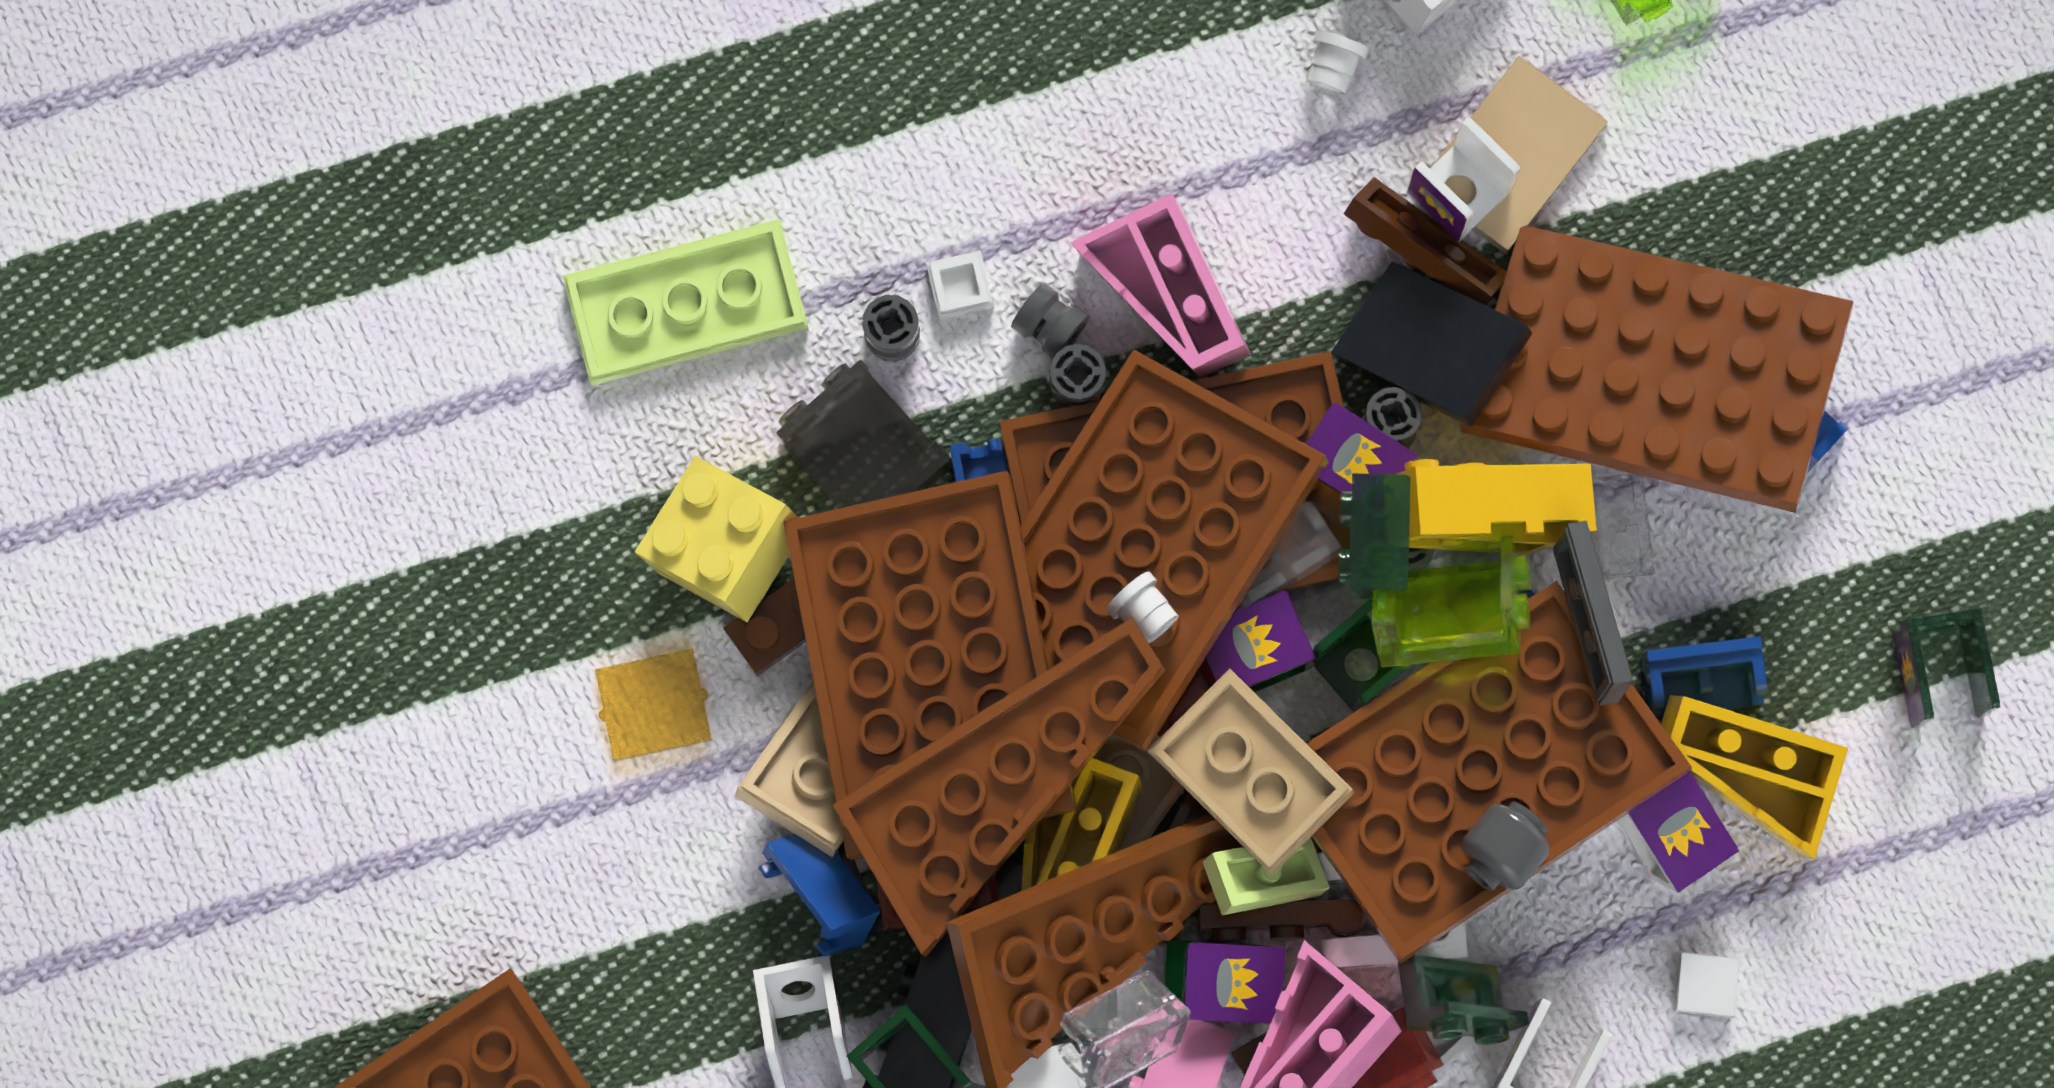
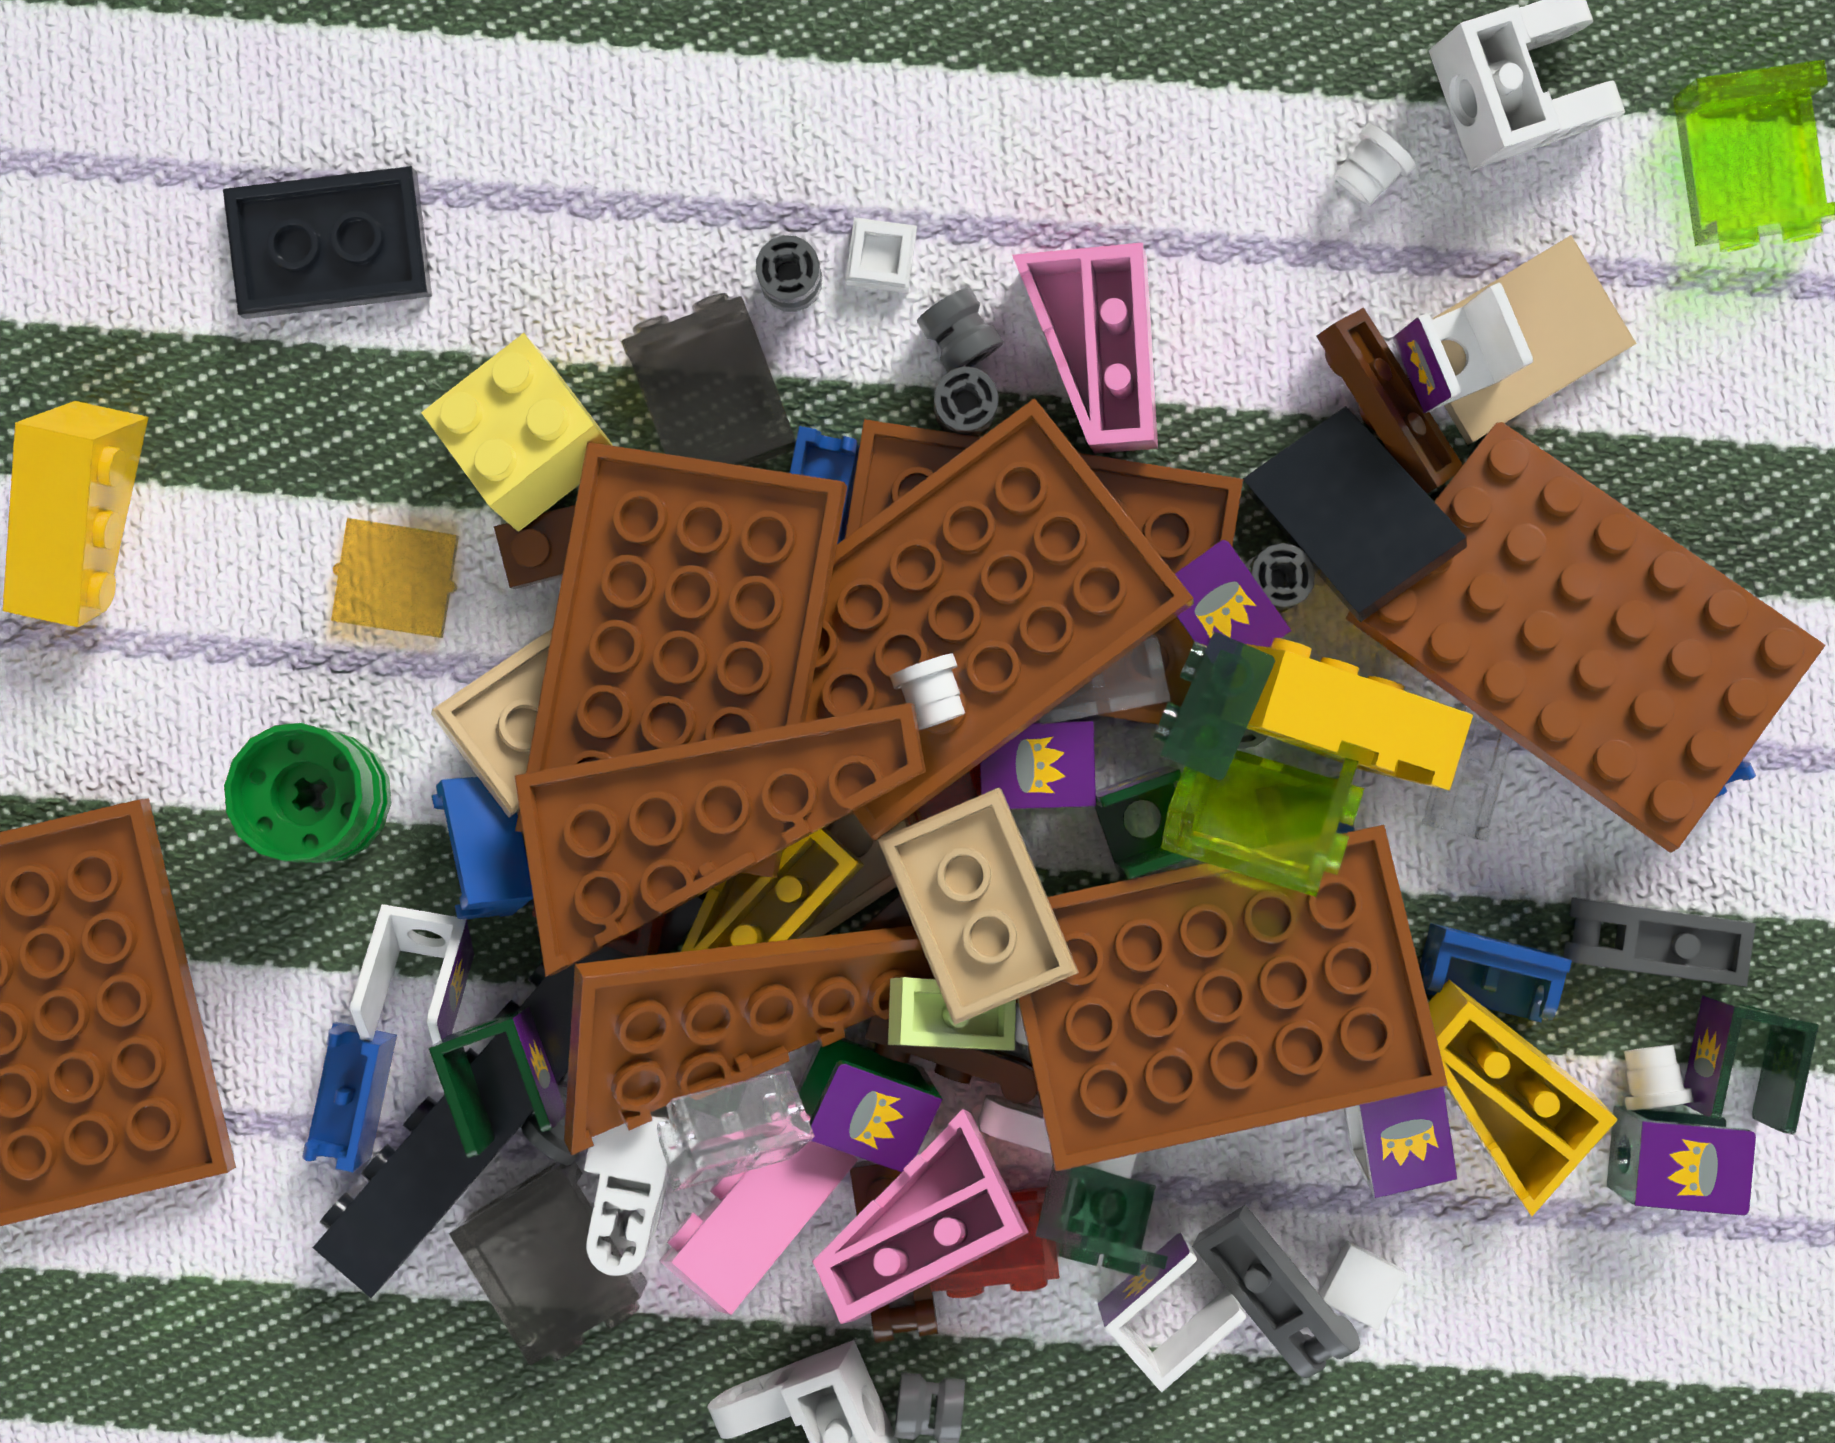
camera: 20 degrees right, 10 degrees up
(368, 750) = (69, 510): none -> yellow wedge
(494, 449) = (327, 242): none -> black tile
(649, 871) = (273, 793): none -> green wheel
(685, 302) = (585, 161): yellowish green tile -> none
(1505, 846) = (1215, 1101): dark grey head -> none
(1592, 613) = (1410, 882): dark grey tile -> none
(1634, 1016) = (1275, 1293): none -> dark grey plate
(1834, 597) = (1662, 942): none -> dark grey plate
(1876, 713) = (1654, 1078): none -> white piece
(1923, 769) = (1680, 1161): none -> piece

